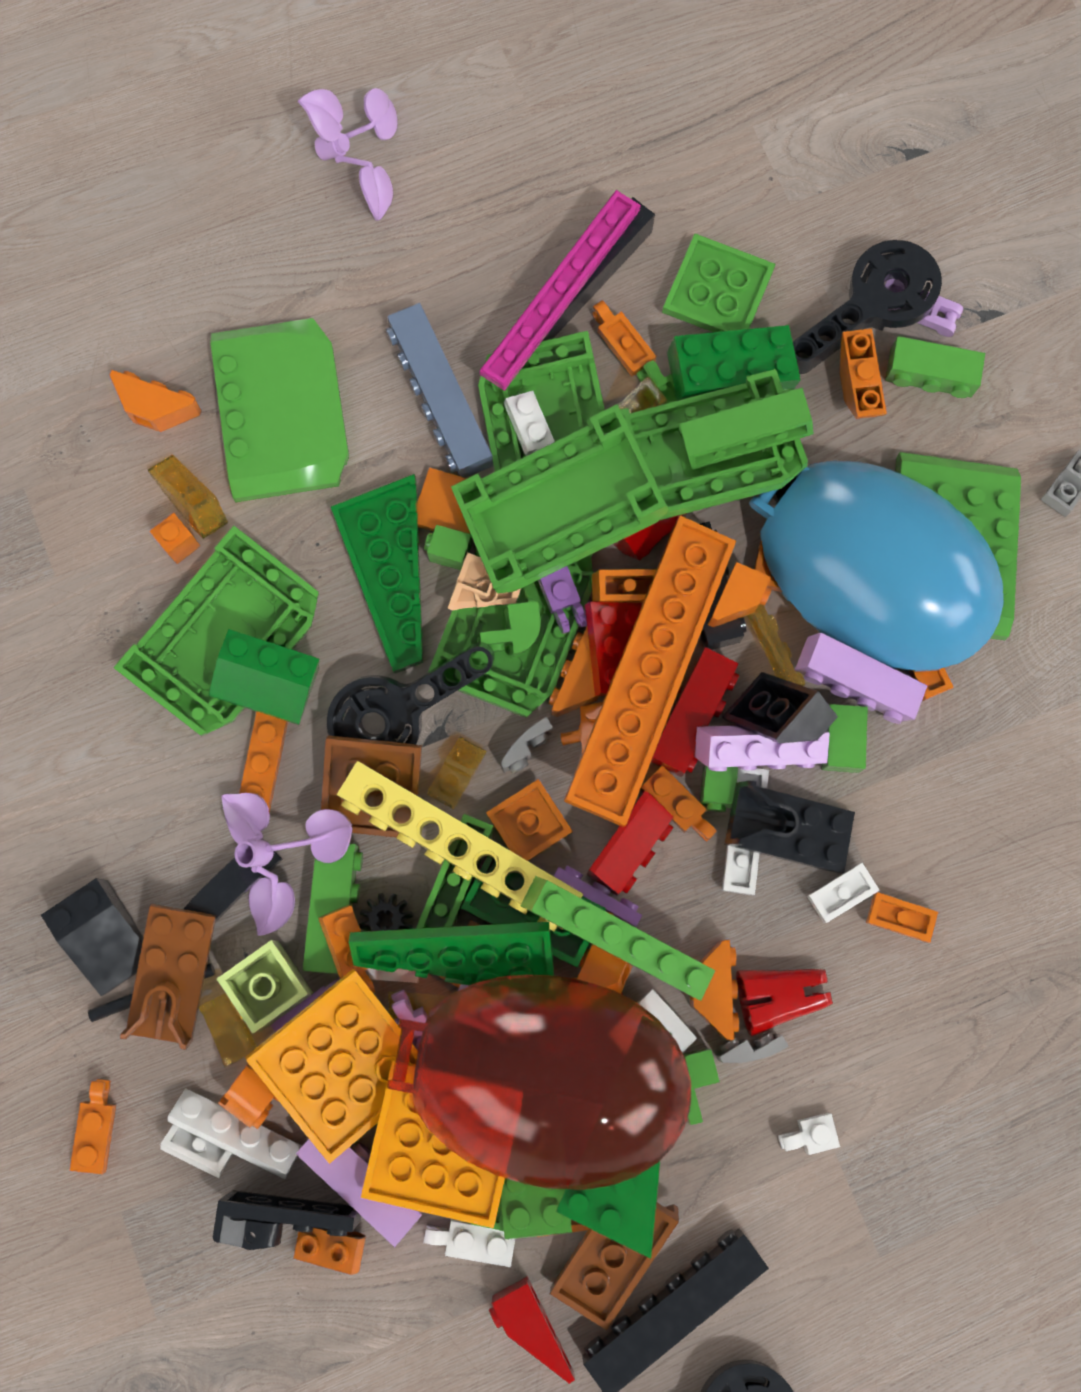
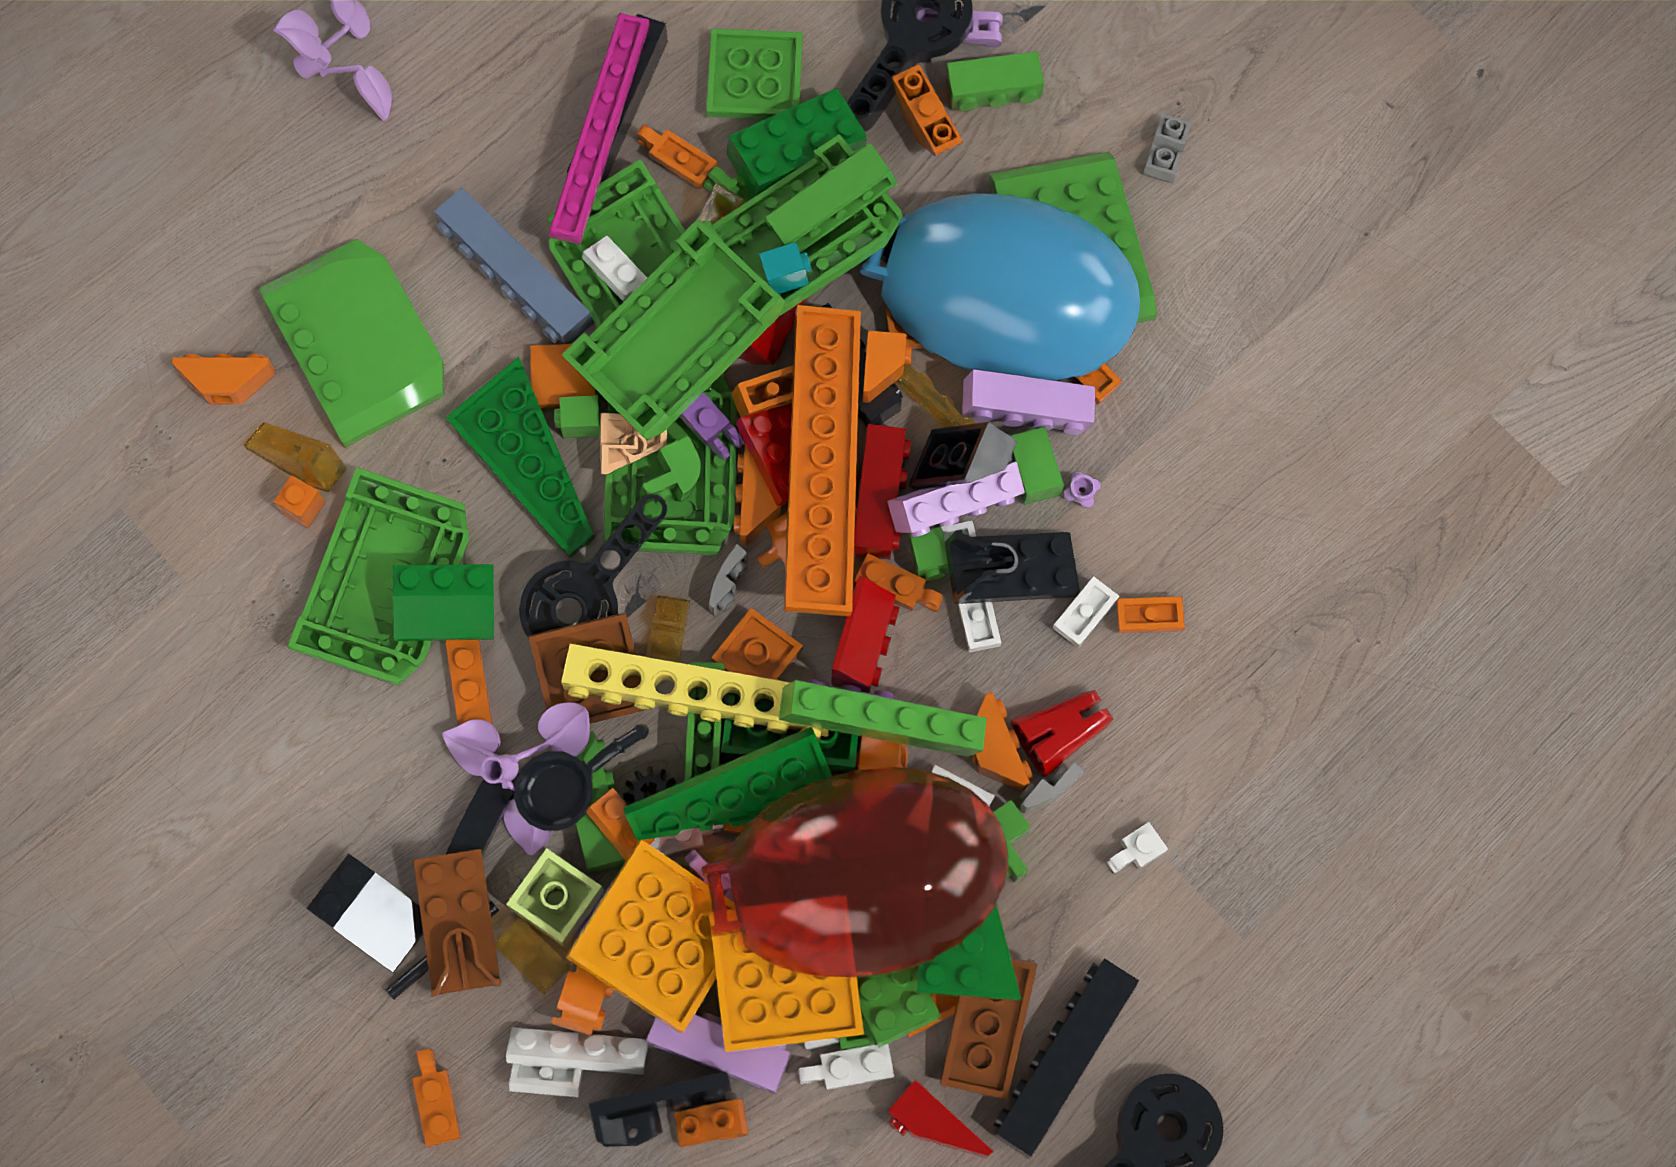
camera: 20 degrees left, 5 degrees down
(300, 889) = (558, 787): none -> black piece
(681, 478) = (786, 268): none -> teal brick
(889, 776) = (1079, 481): none -> lavender plate

